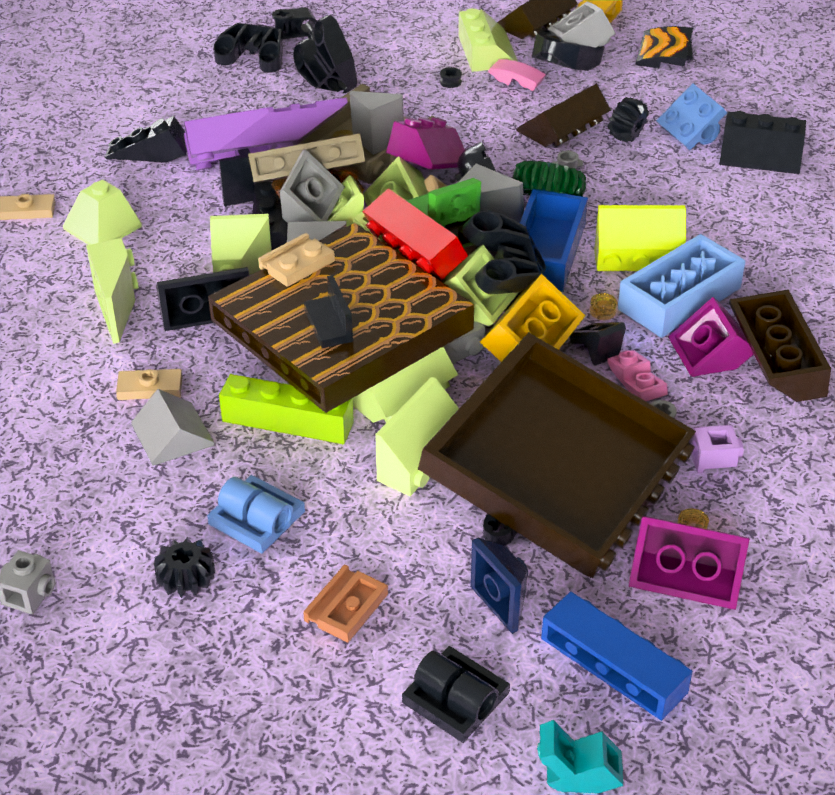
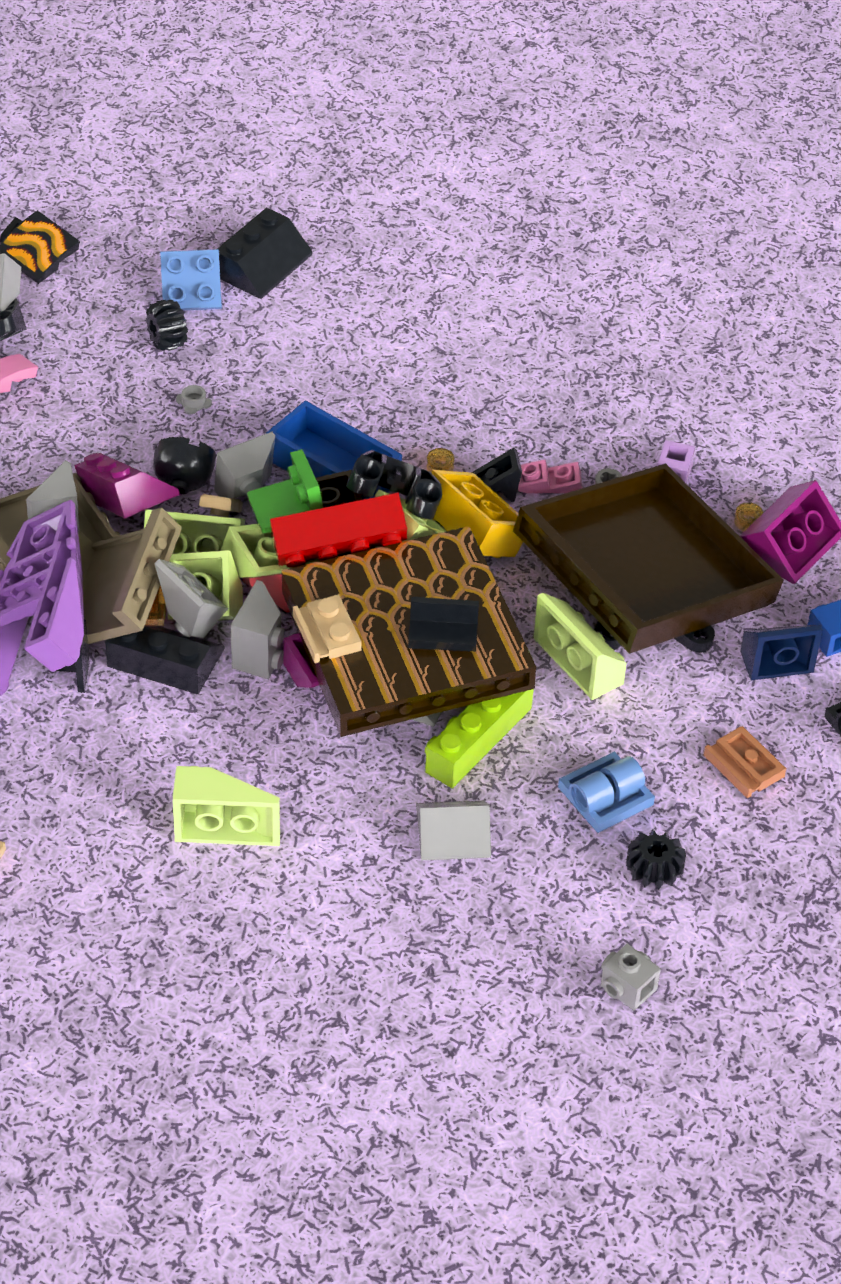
camera: 70 degrees left, 5 degrees up
(101, 214) = (52, 799): yellowish green slope -> none
(144, 383) = (370, 828): tan plate -> none
(185, 300) = (270, 739): black slope -> none
(239, 241) = (207, 693): yellowish green slope -> none
(550, 178) = (251, 417): dark green gear -> none
(567, 118) = (117, 370): dark brown slope -> none
(637, 235) = (378, 392): neon yellow slope -> none
(680, 284) = (456, 396): light blue brick -> none
(710, 341) = (536, 412): magenta slope -> none
(783, 344) = (577, 363): dark brown slope -> none

